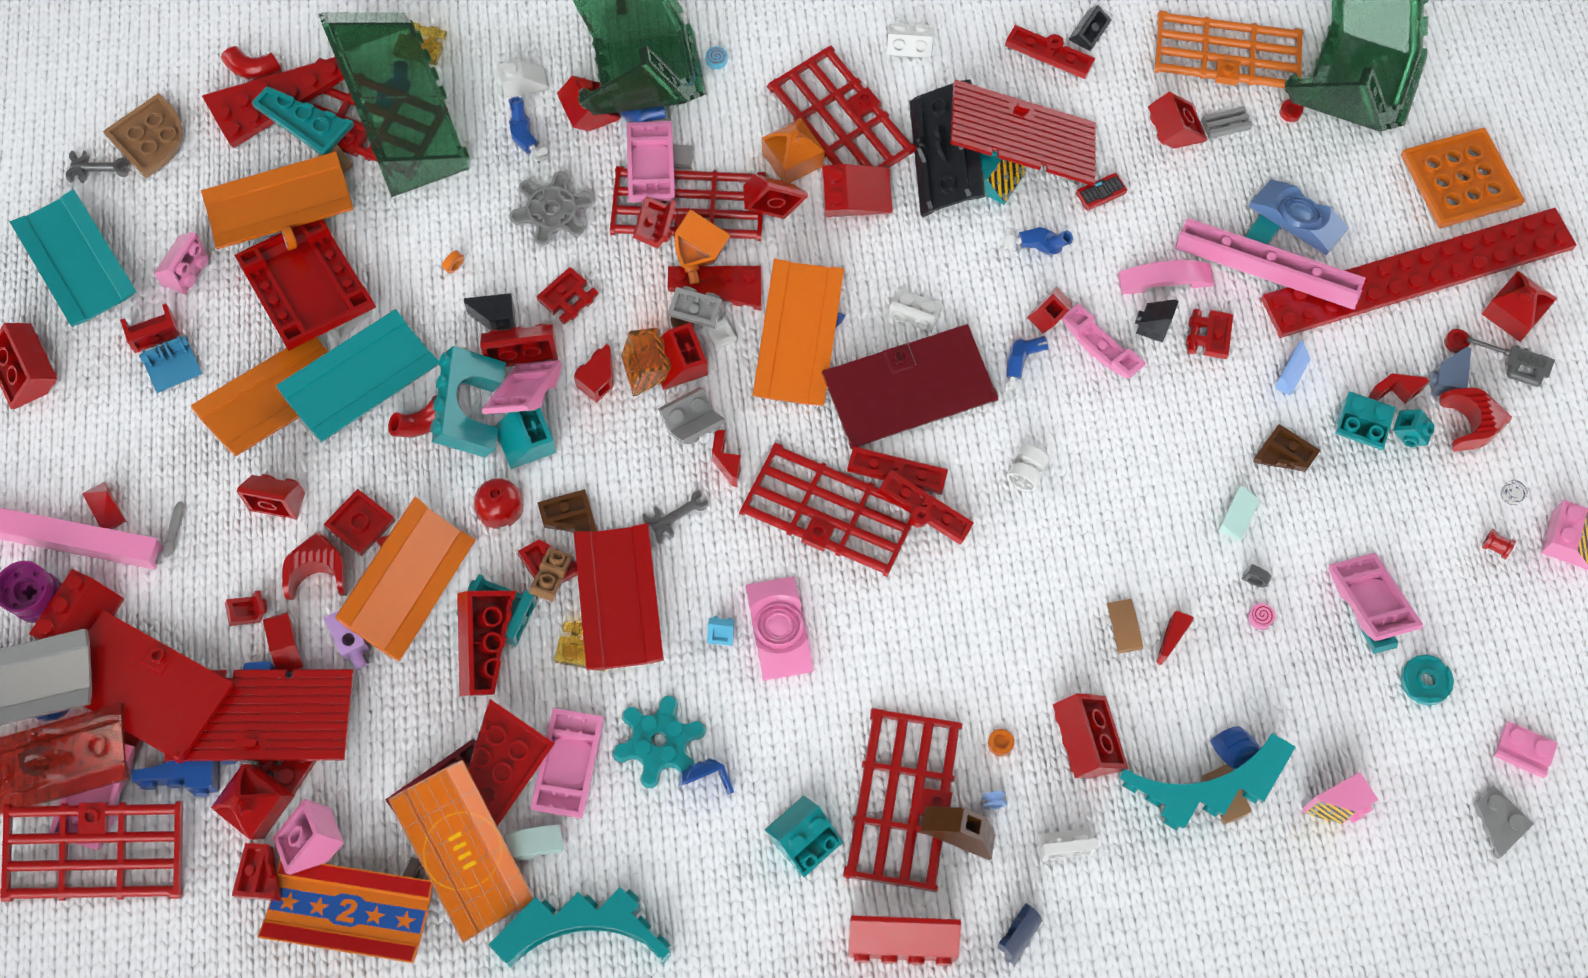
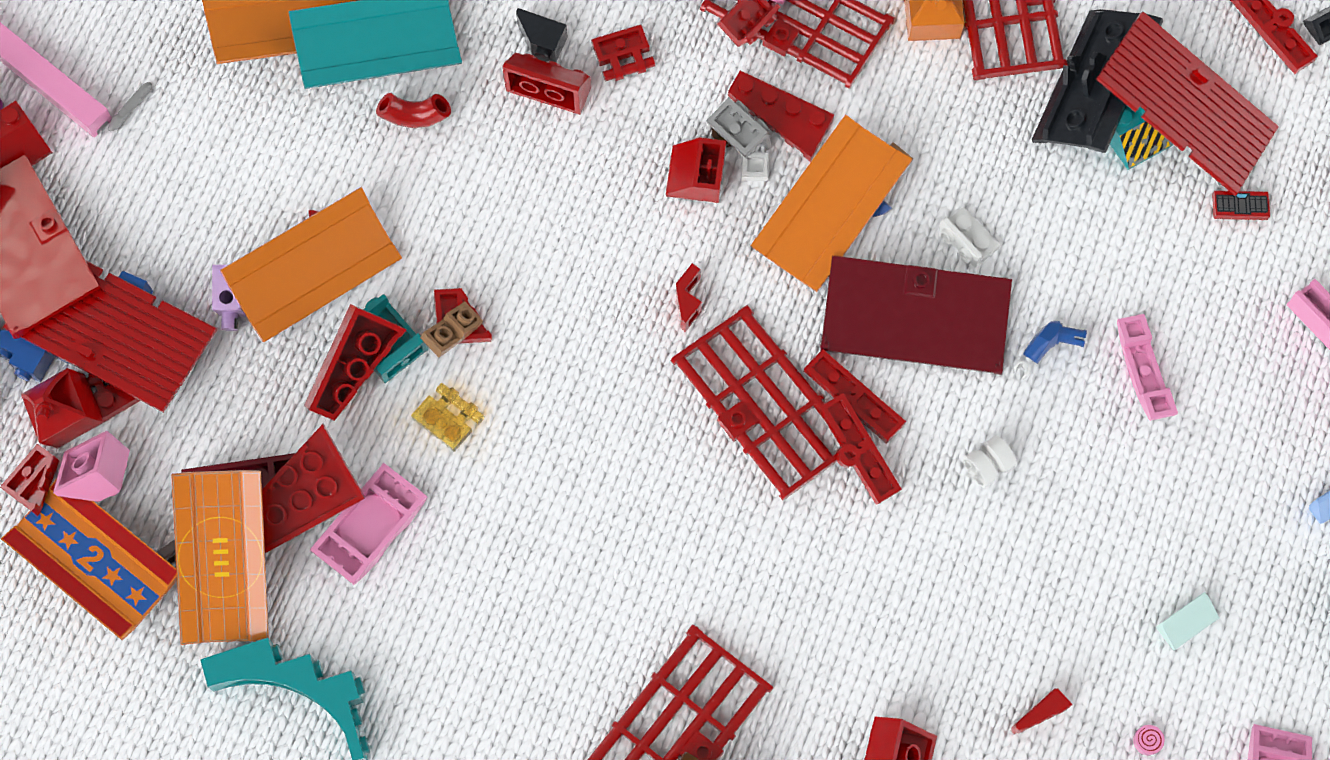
camera: 30 degrees right, 5 degrees up
(104, 506) = (79, 53): red slope -> none
(246, 609) = (153, 219): red bracket -> none
(272, 496) = (234, 119): red slope -> none
(282, 642) = (168, 267): red slope -> none
(313, 557) = (237, 197): red animal -> none
(359, 522) = (302, 185): red plate -> none
(450, 424) = (435, 132): teal arch -> none
(498, 503) = (443, 232): red cylinder -> none
(524, 387) = (525, 128): bright pink slope -> none
(524, 437) = (504, 176): teal slope -> none
(534, 841) = (296, 583): light aqua slope -> none
(568, 512) = (504, 276): reddish brown wing -> none
(596, 375) = (608, 149): red slope -> none
(618, 598) = (503, 385): red hinge -> none
(645, 360) = (661, 157): clear orange slope -> none
(655, 758) = (473, 566): teal plate -> none
(661, 525) = (588, 331): flat silver bar -> none
(690, 417) = (675, 238): light grey bracket -> none
(698, 244) = (777, 62): orange piece -> none
(703, 769) = (490, 598): blue piece -> none
(720, 631) = (586, 469): medium azure tile -> none
(772, 196) = (883, 46): red slope -> none
(779, 628) = (646, 496): bright pink slope -> none
(804, 835) = (554, 715): teal slope -> none
(856, 190) = (976, 81): red slope -> none
(1001, 742) = (802, 726): orange tile -> none
(1040, 239) = (1143, 224): blue arm -> none
(1050, 310) = (1110, 306): red slope -> none
(1125, 626) = (997, 675): medium nougat slope -> none
(1156, 319) = (1217, 372): black slope -> none
(1166, 273) = (1258, 328): bright pink slope -> none
(1217, 337) = (1276, 421): red plate -> none
(1256, 576) = (1167, 696): dark grey tile -> none
(1286, 451) = (1278, 581): reddish brown wing -> none

